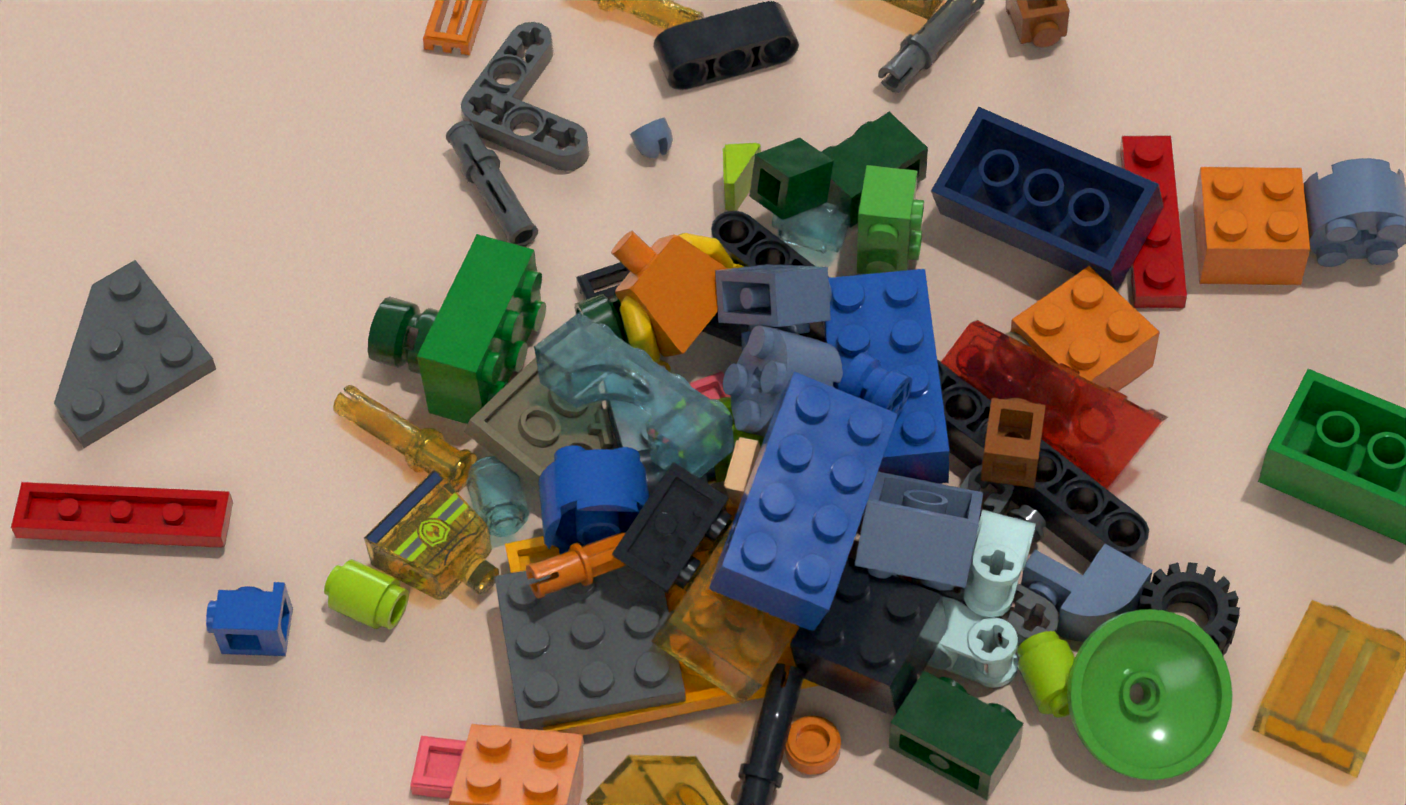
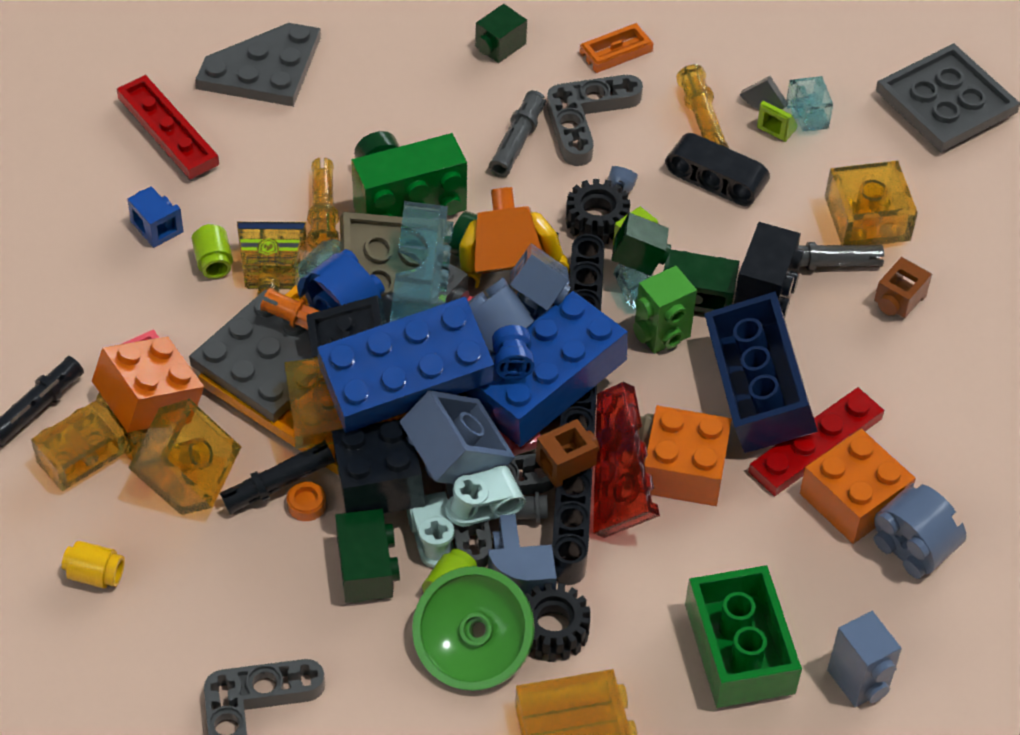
camera: 45 degrees right, 5 degrees down
(333, 96) = (501, 33): none -> dark green brick
(671, 168) = (596, 196): none -> black tyre
(926, 94) = (770, 265): none -> black brick

